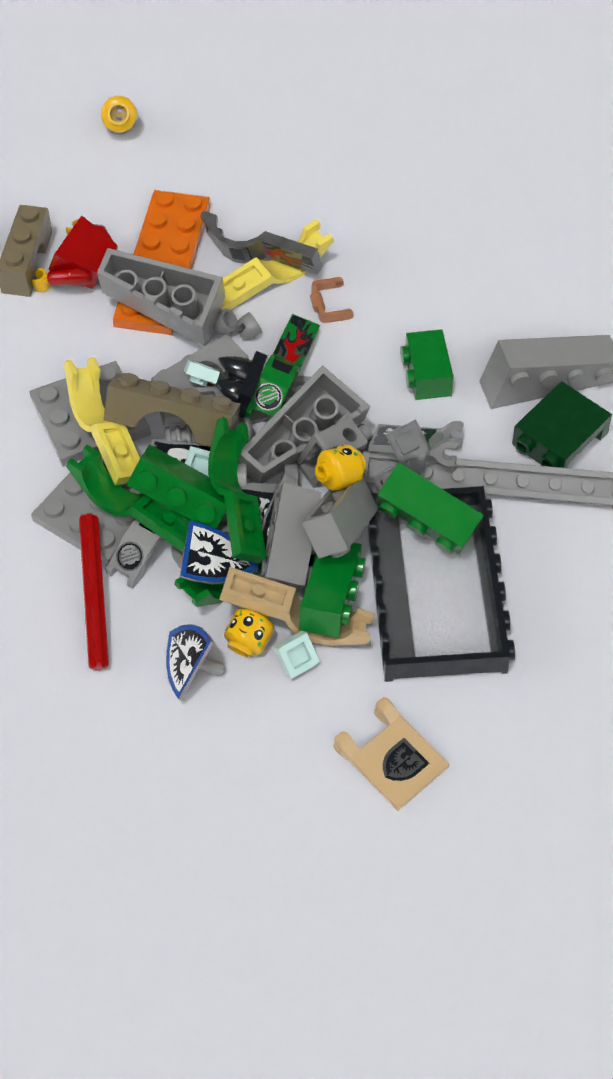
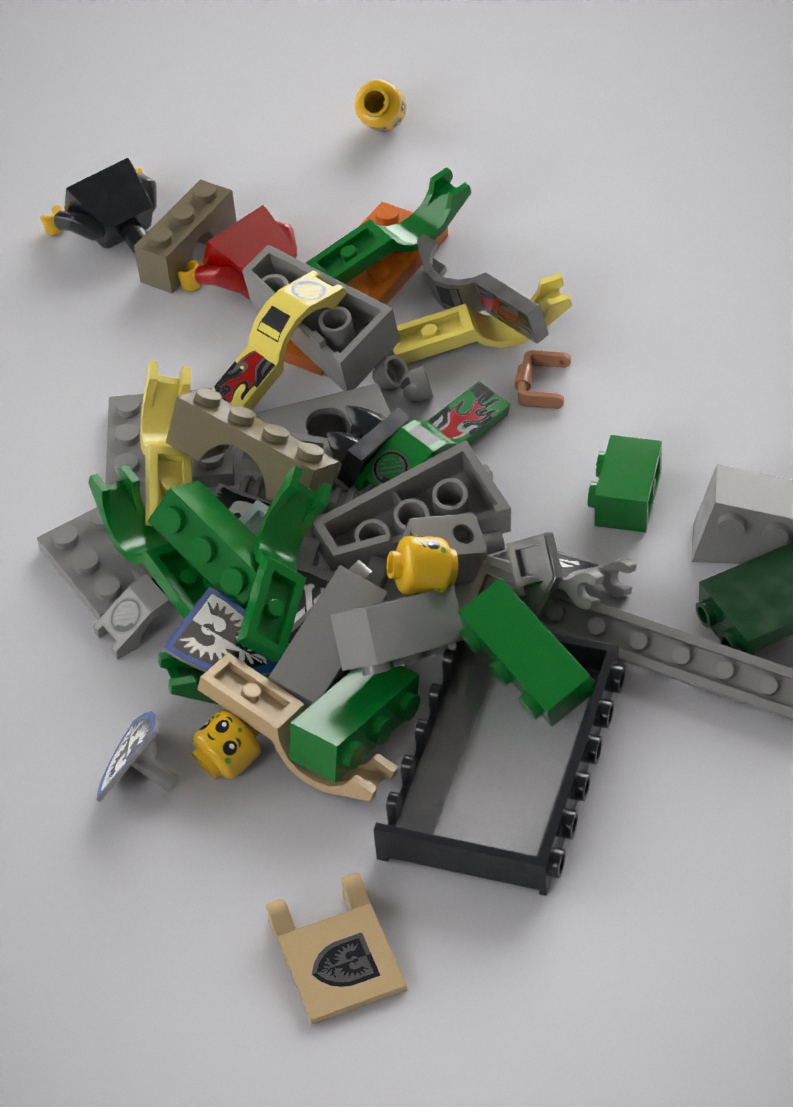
camera: 25 degrees right, 10 degrees down
(93, 592) = (59, 646): red axle -> none
(145, 320) = (264, 356): none -> light yellow piece
(172, 224) = (373, 242): none -> green piece
(201, 373) = (314, 417): light aqua plate -> none
(296, 654) = (273, 789): light aqua plate -> none

